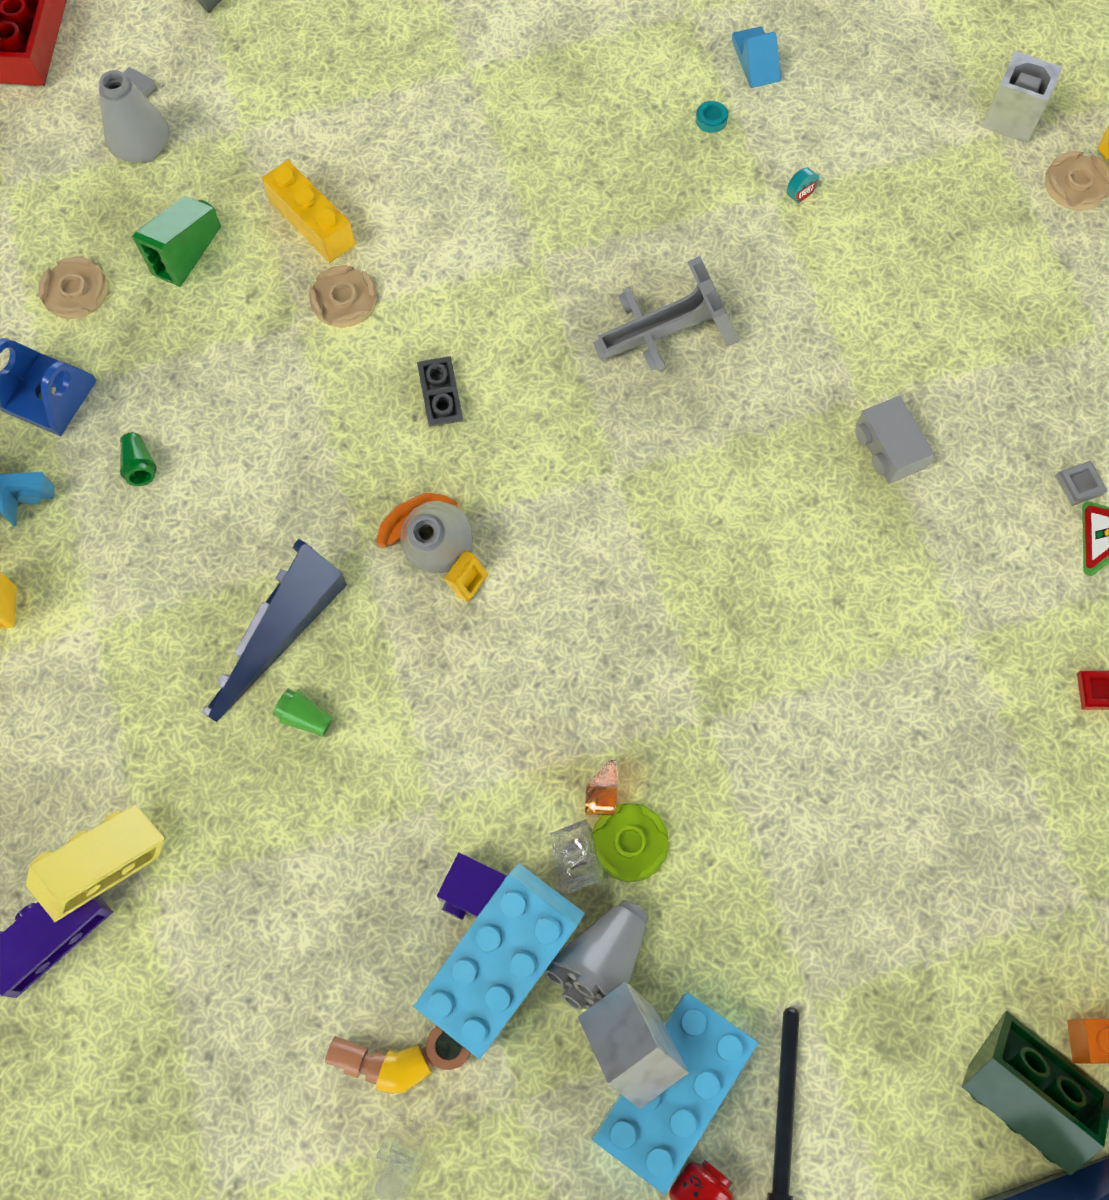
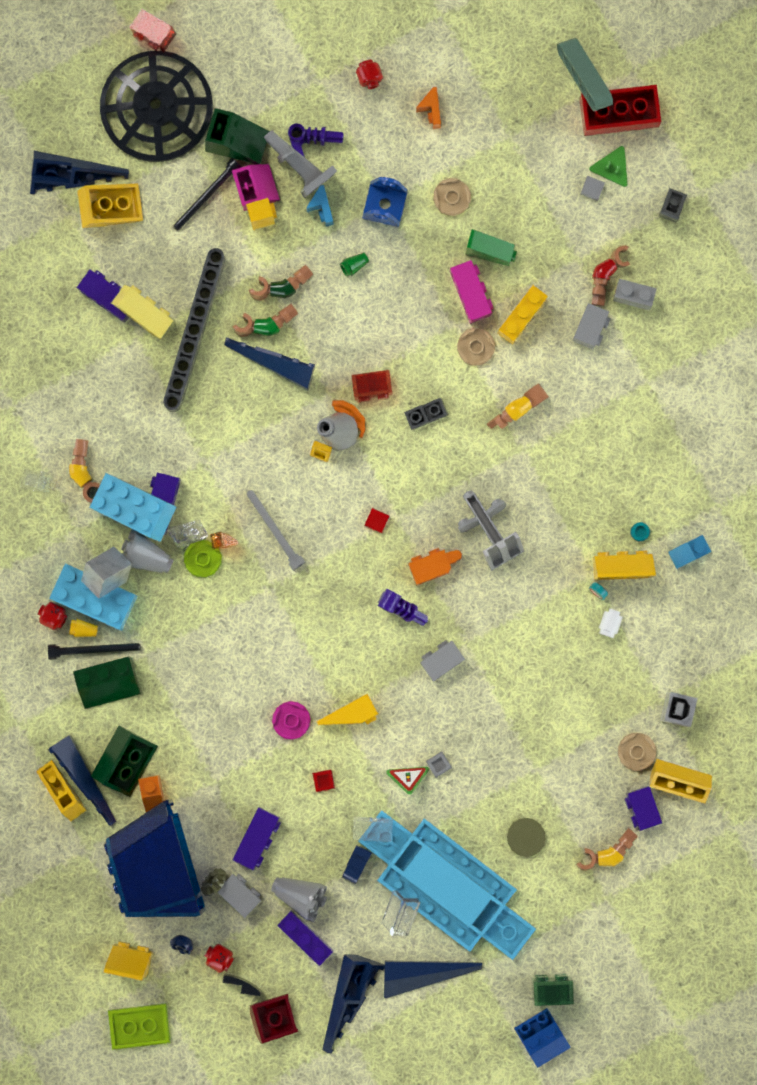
camera: 80 degrees right, 15 degrees up
(110, 55) = (612, 167): none -> bright green piece
(130, 121) = (559, 206): light grey cone -> none
(139, 595) = (283, 288): none -> nougat piece
(156, 756) = (193, 320): none -> dark grey beam
(201, 638) = (267, 326): none -> nougat piece
(244, 282) = (471, 291): none -> dark pink brick
(277, 92) = (603, 273): none -> nougat piece
(302, 713) = (234, 386): bright green cone -> none
(323, 52) = (634, 294): none -> light grey brick
(357, 121) = (591, 326): none -> light grey brick
(365, 467) = (372, 385): none -> clear red brick
(467, 241) = (519, 407): none -> piece
(615, 507) = (376, 520): none -> red tile
(664, 663) = (294, 559): none -> light grey piece
(718, 425) = (433, 565): none -> orange hinge
(738, 1131) = (81, 628): none -> yellow cone
(769, 136) = (623, 566): none -> yellow slope
(783, 489) = (395, 604): none -> dark purple piece
(859, 176) = (610, 623): none -> white brick
(860, 1098) = (107, 682): none -> dark green slope
(966, 737) = (295, 716): none -> dark pink tile
(975, 605) = (353, 713): none -> yellow slope

